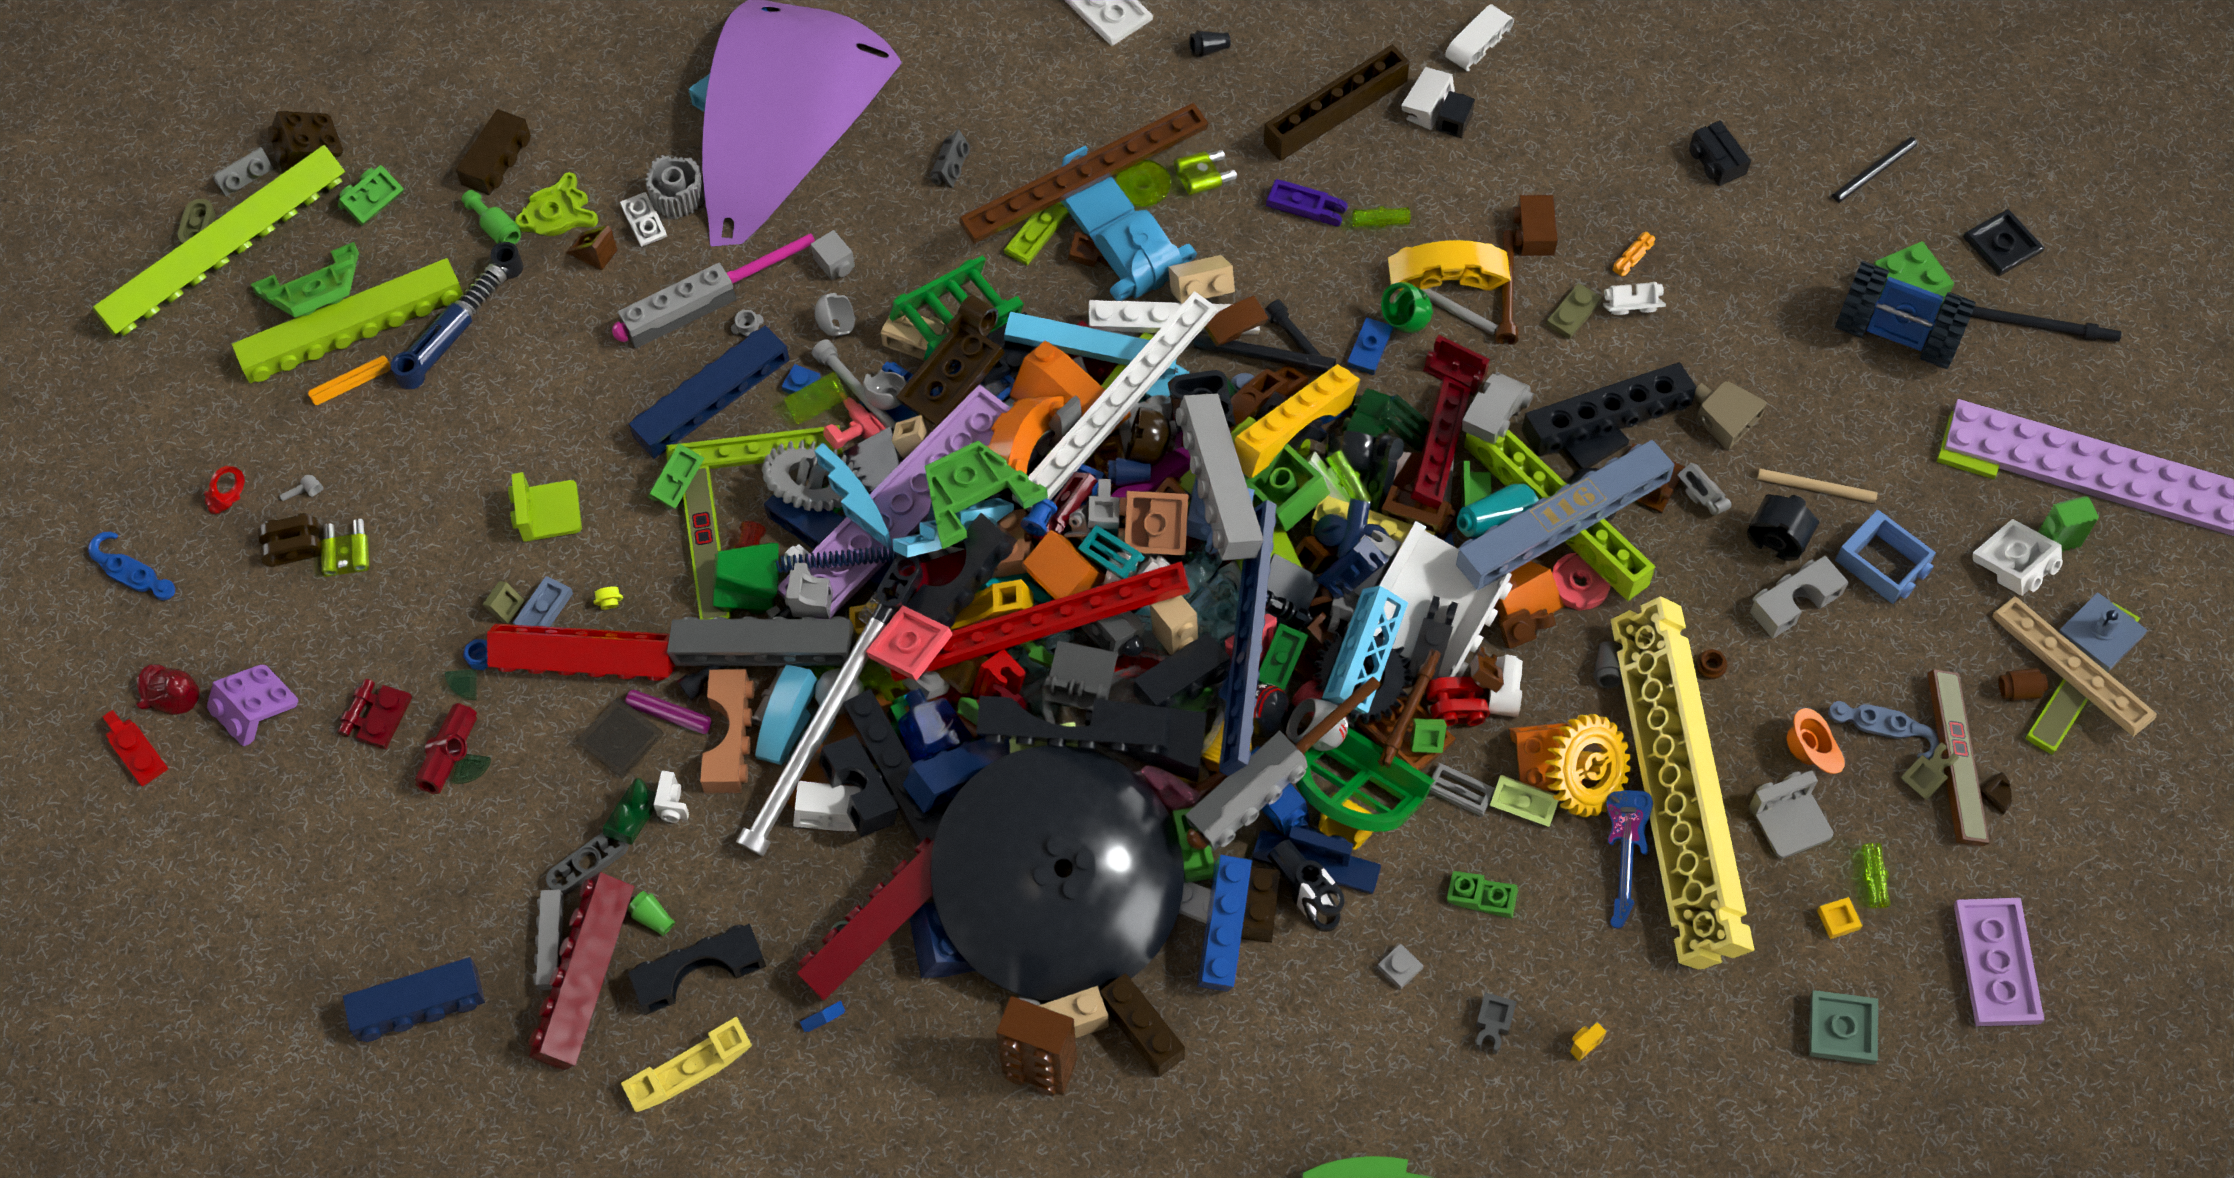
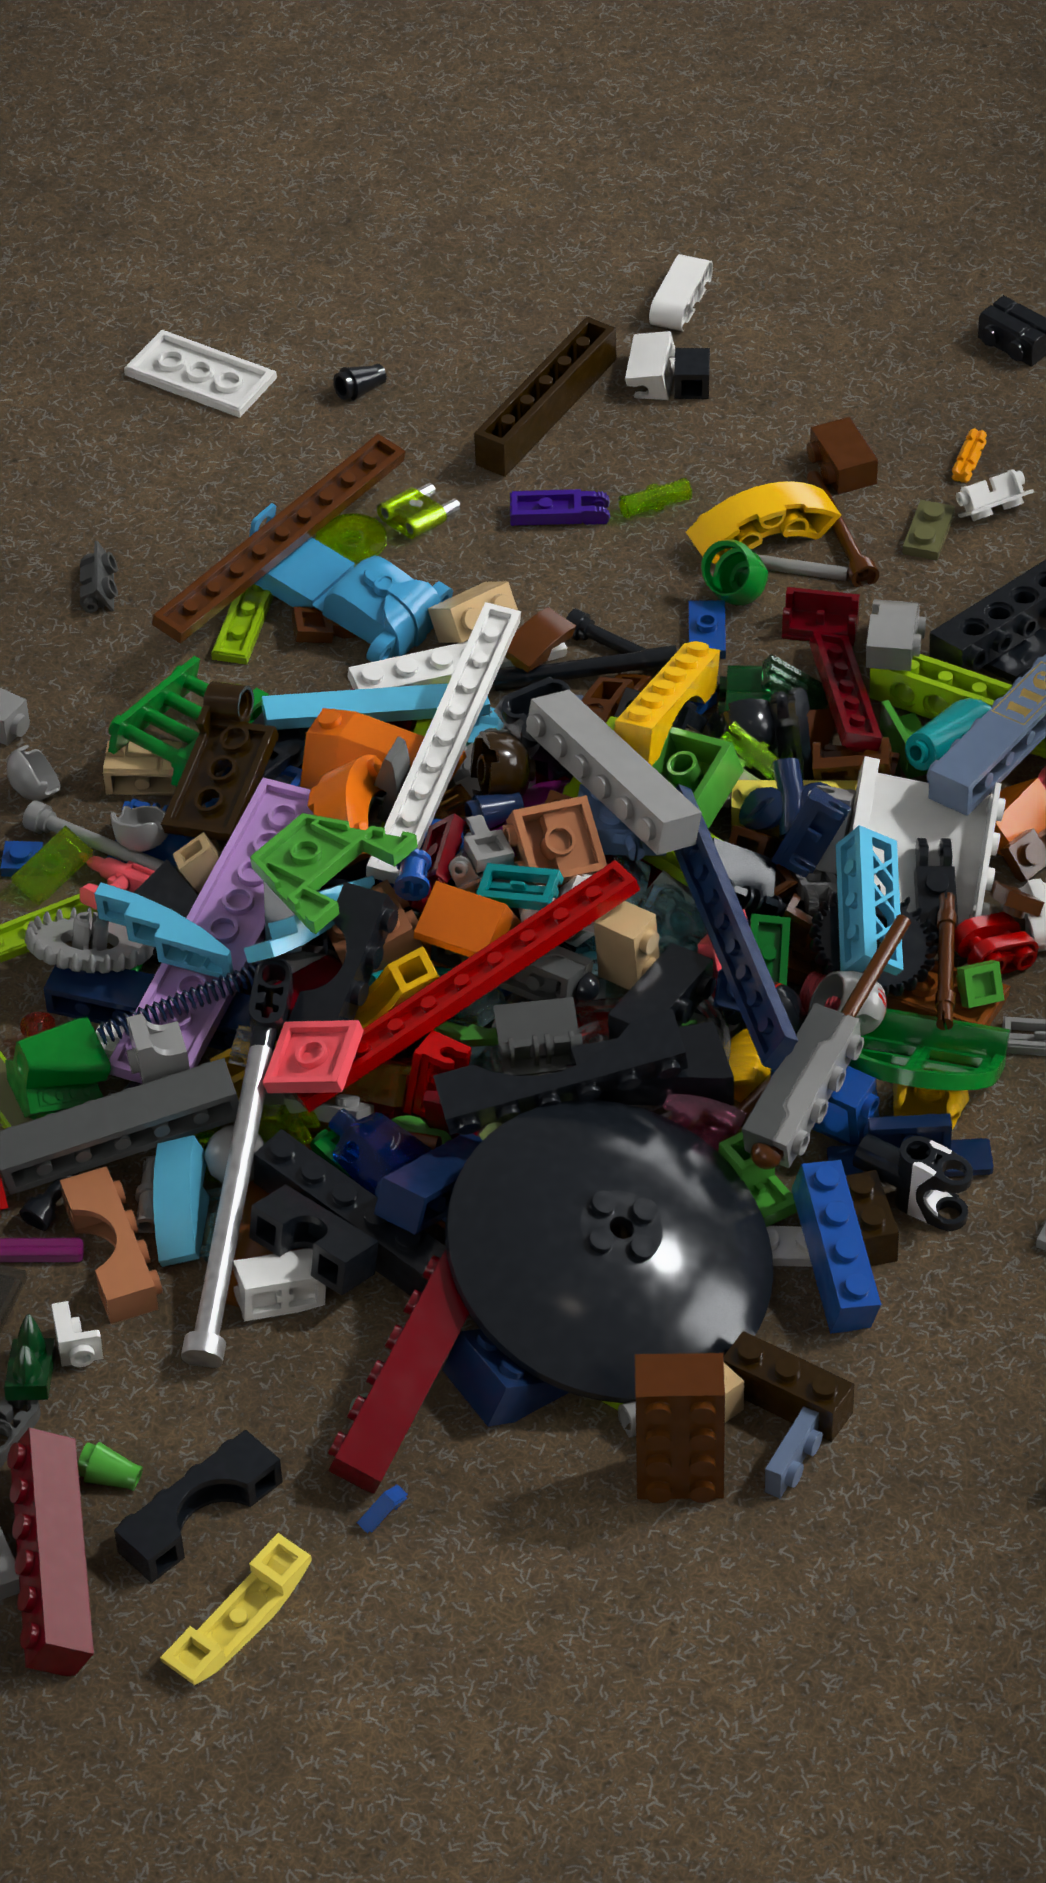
camera: 20 degrees left, 15 degrees down
(1134, 1072) = (786, 1464): none -> sand blue plate

